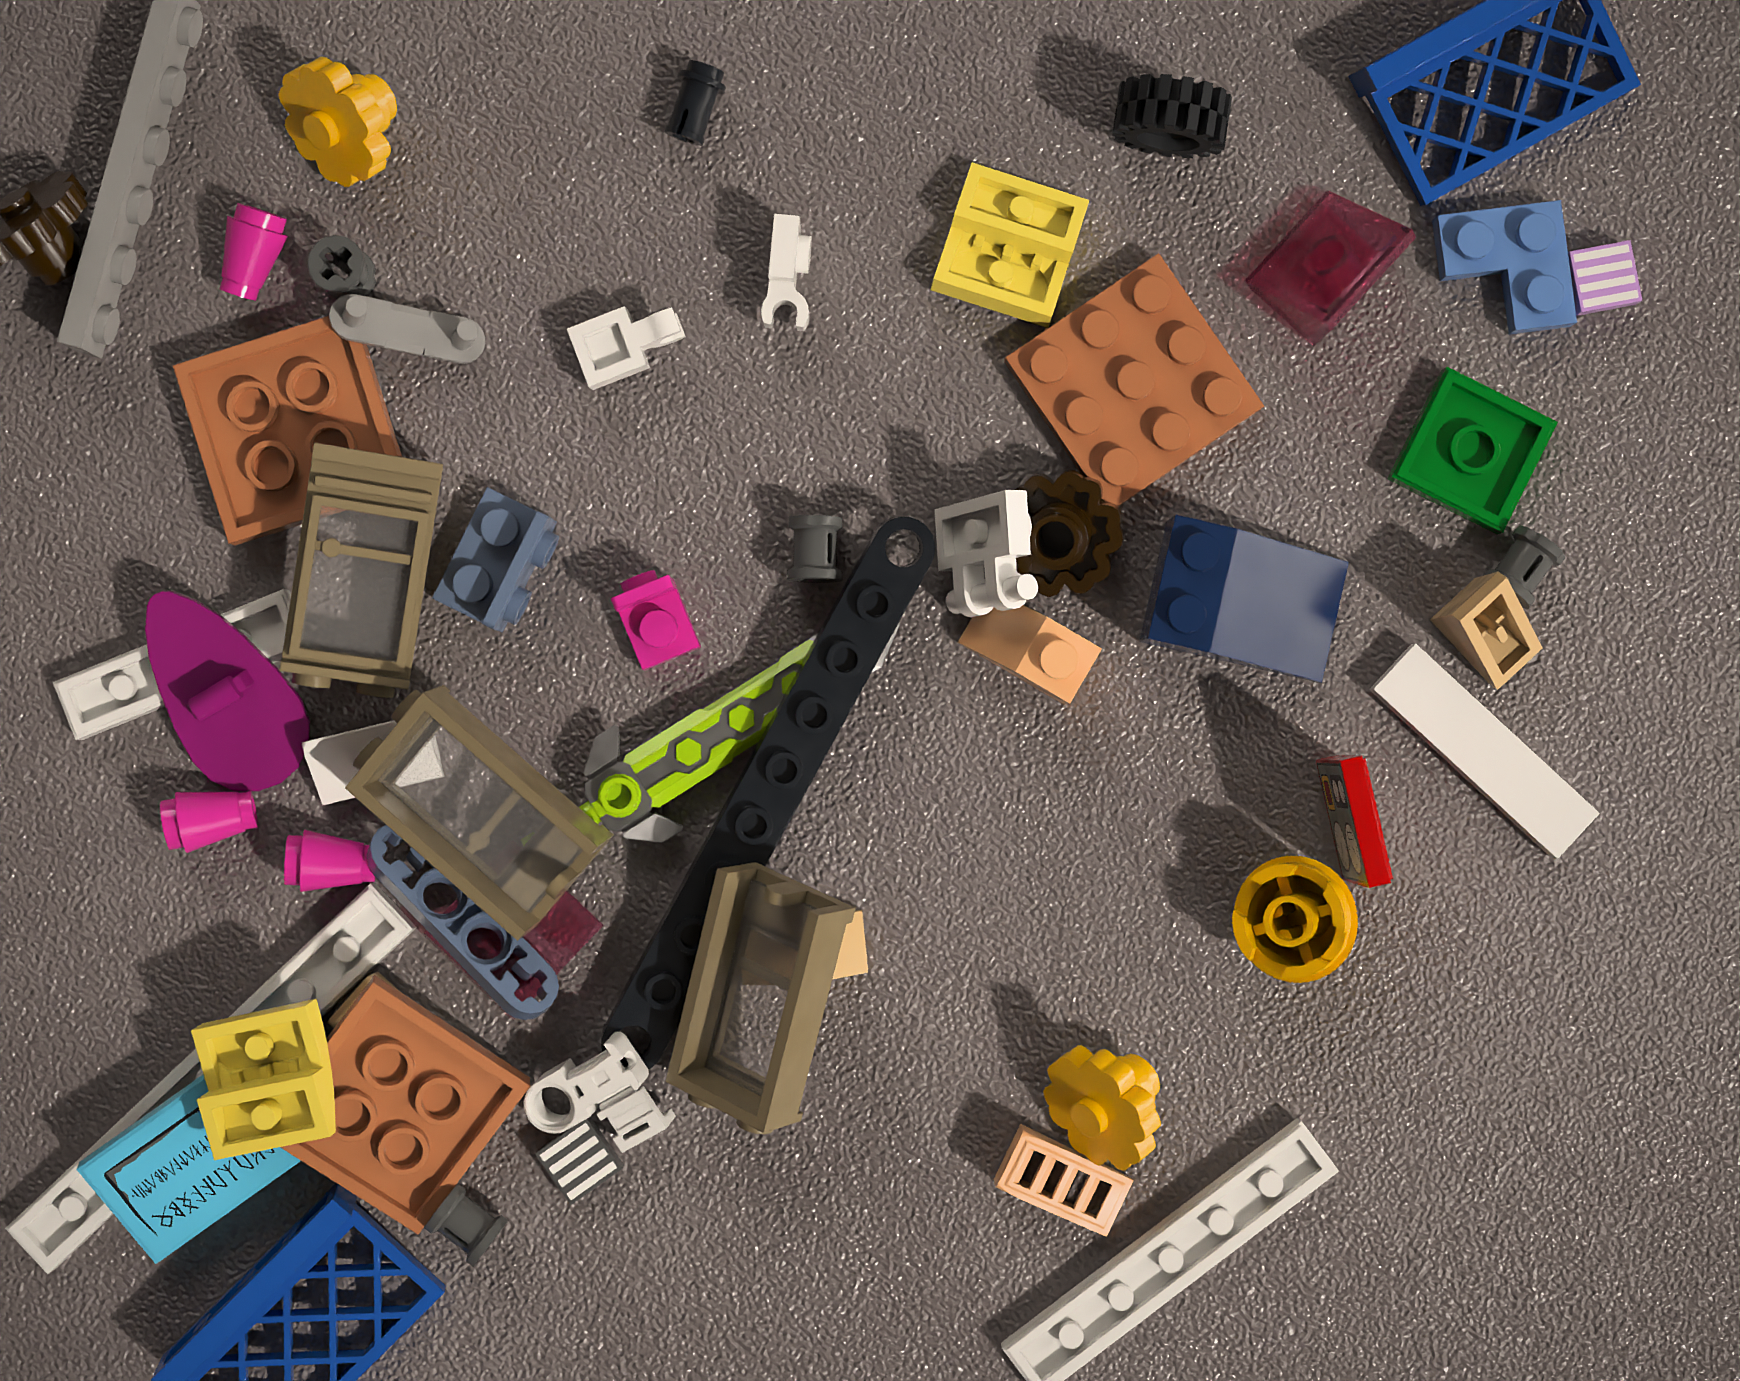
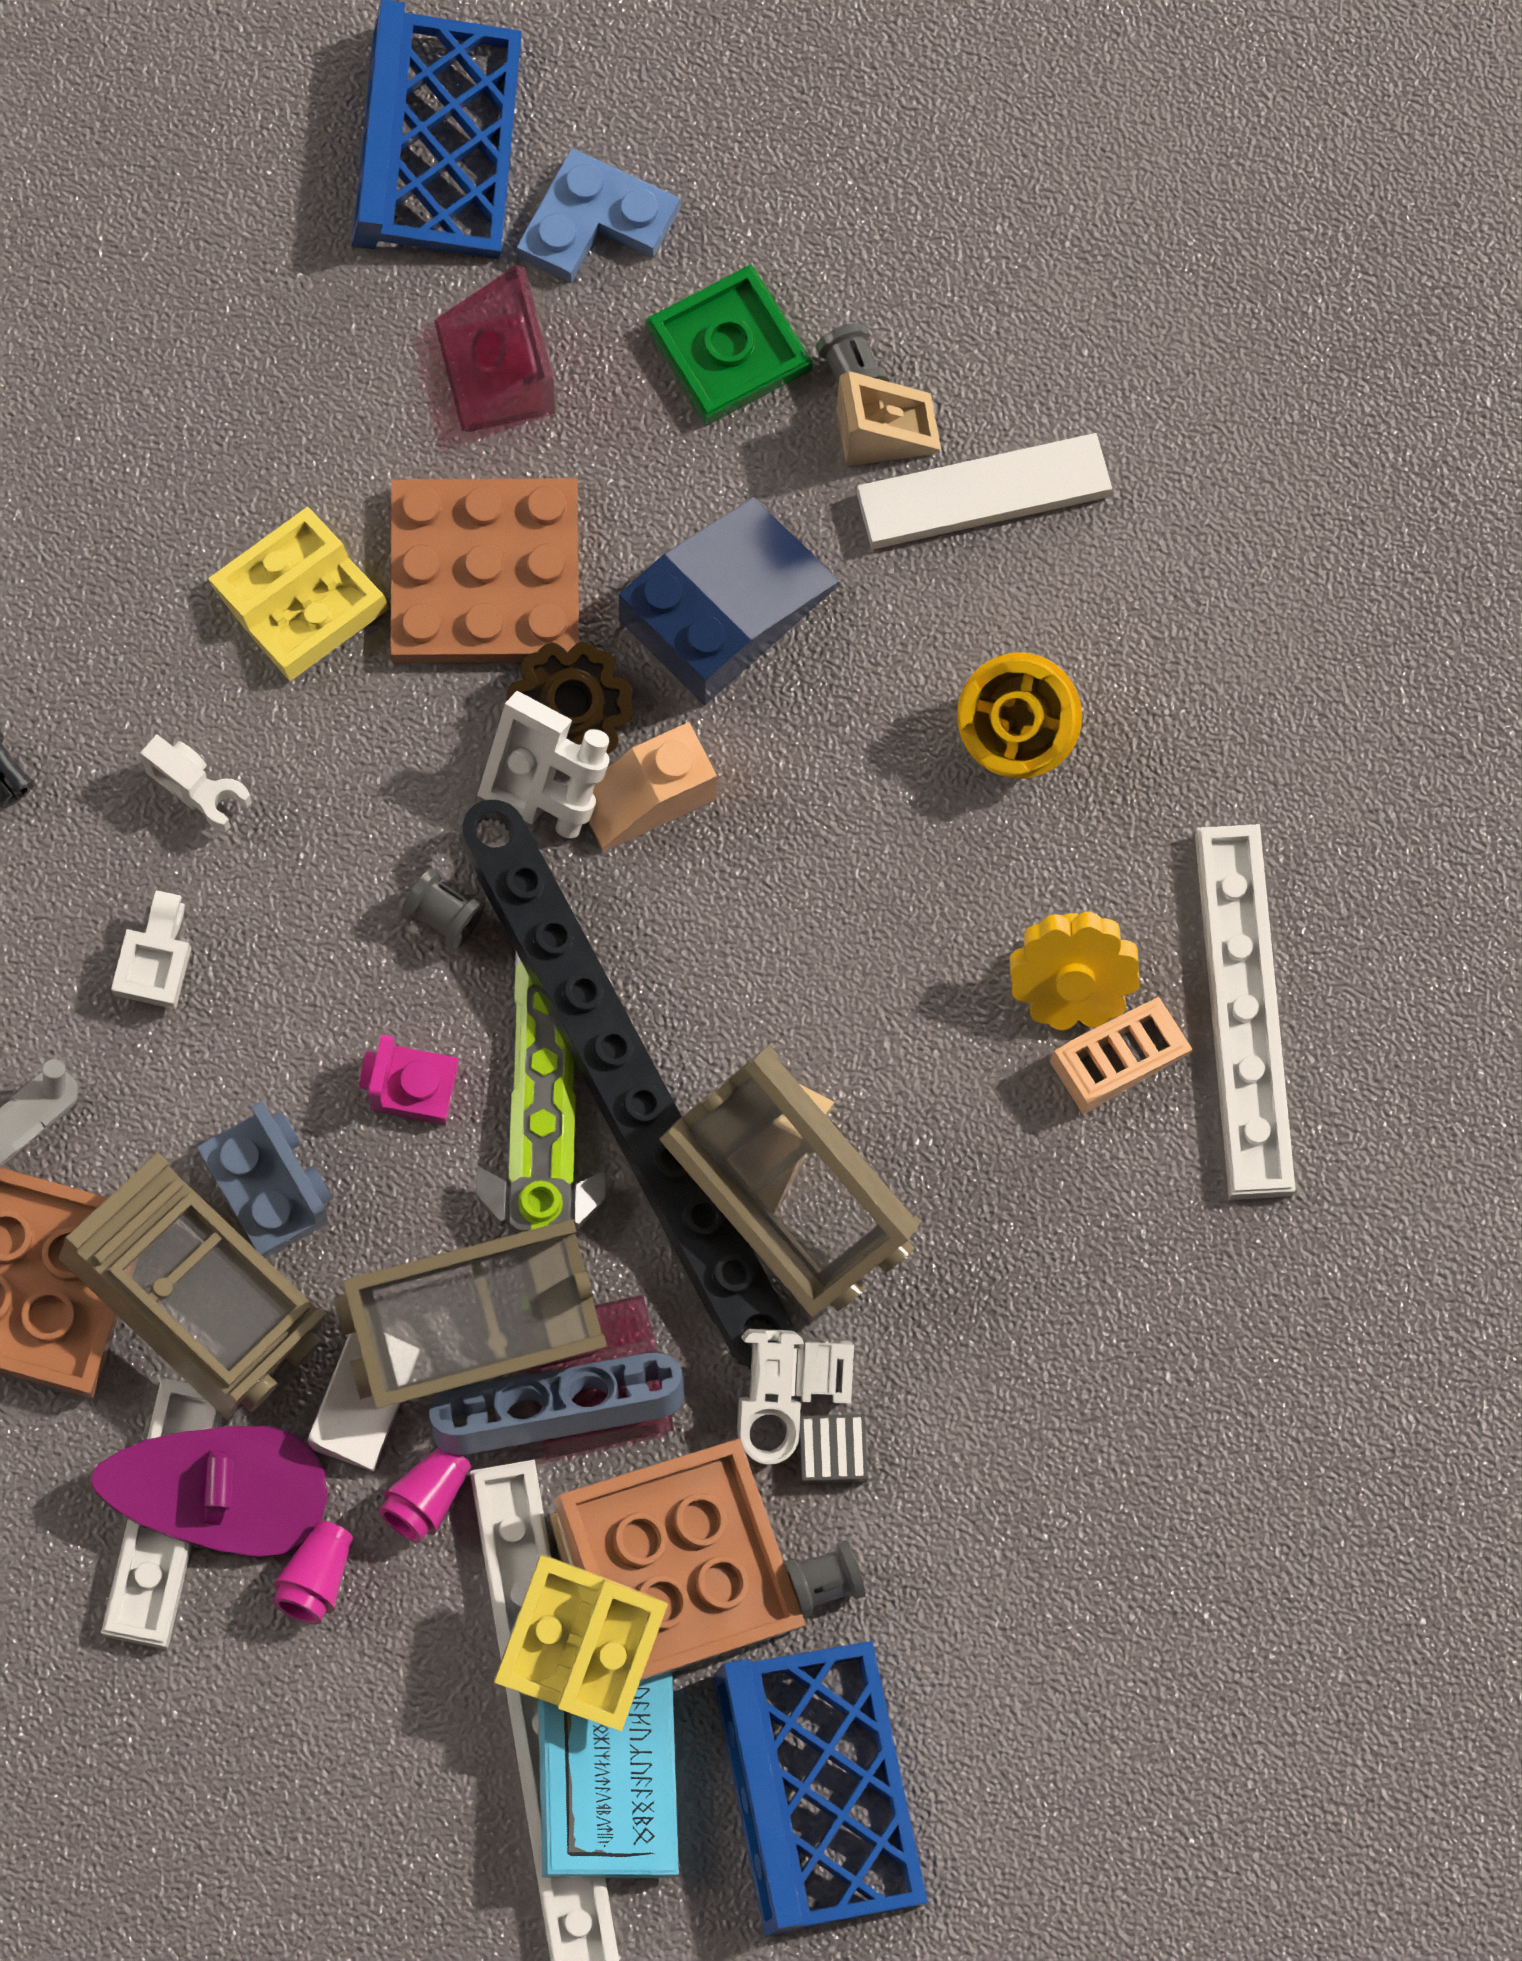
camera: 65 degrees left, 15 degrees down
(1172, 116) = (288, 393): black tyre -> none
(1354, 820) = (965, 615): tile -> none
(1604, 278) = (659, 155): tile -> none

